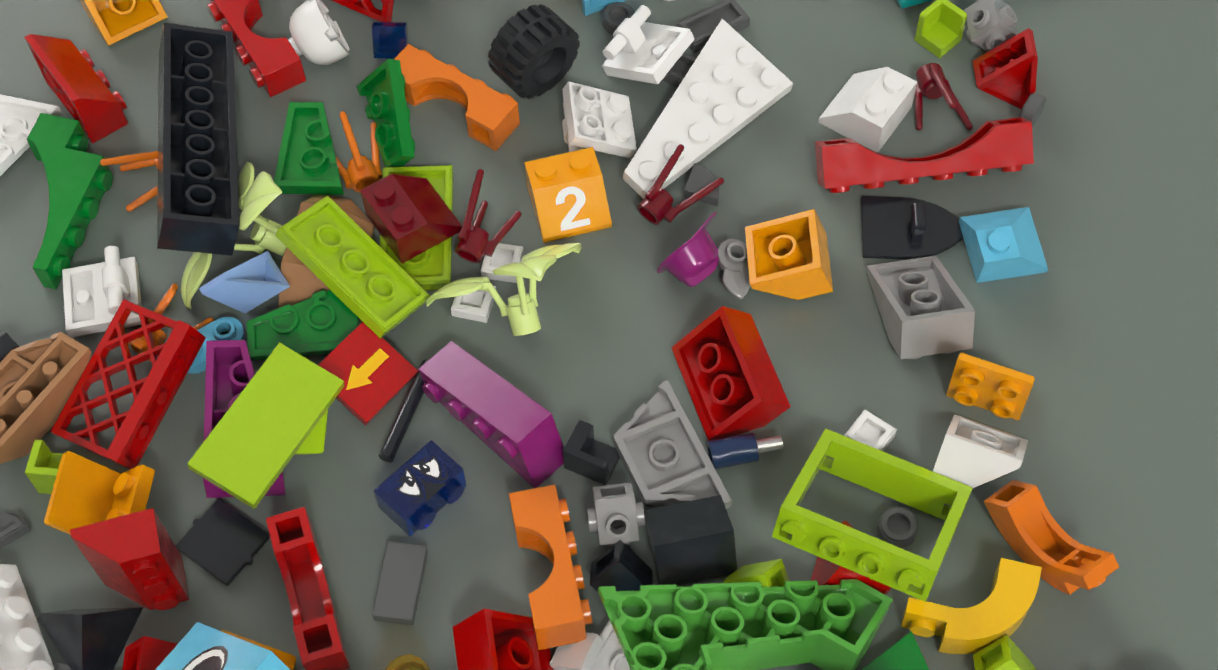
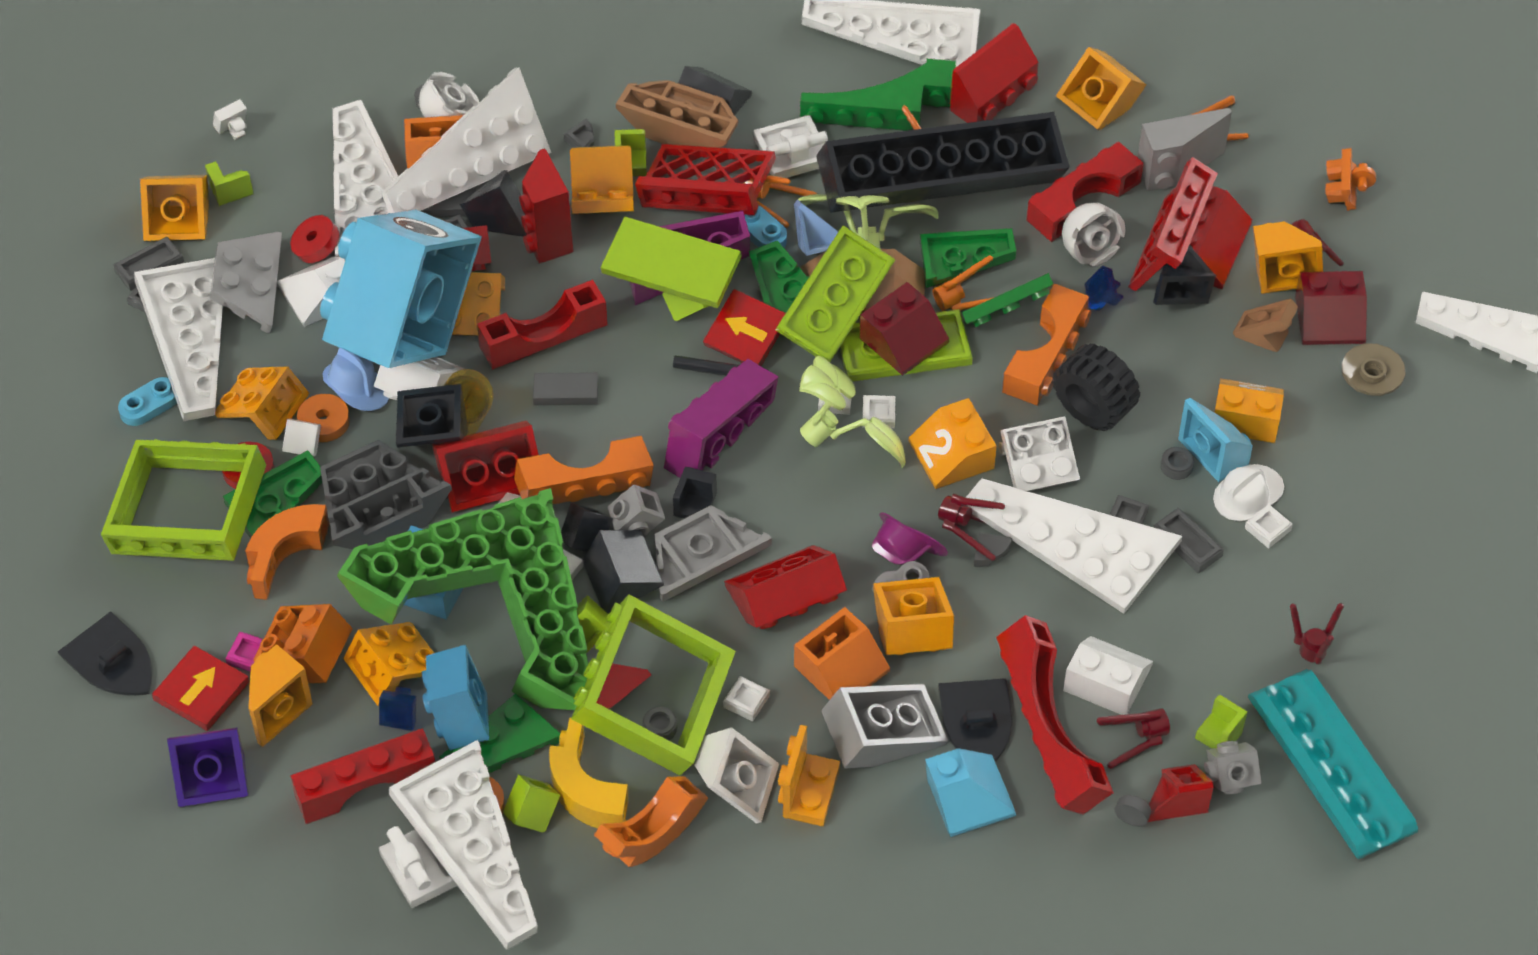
camera: 80 degrees right, 5 degrees down
(223, 542) = (582, 267): black piece -> none
(421, 488) = (645, 384): clear blue brick -> none
(472, 239) = (886, 382): dark red plant -> none
(644, 49) = (1131, 477): white plate -> none
(740, 449) = (714, 599): dark blue piece -> none
(835, 333) = (840, 655): none -> orange slope

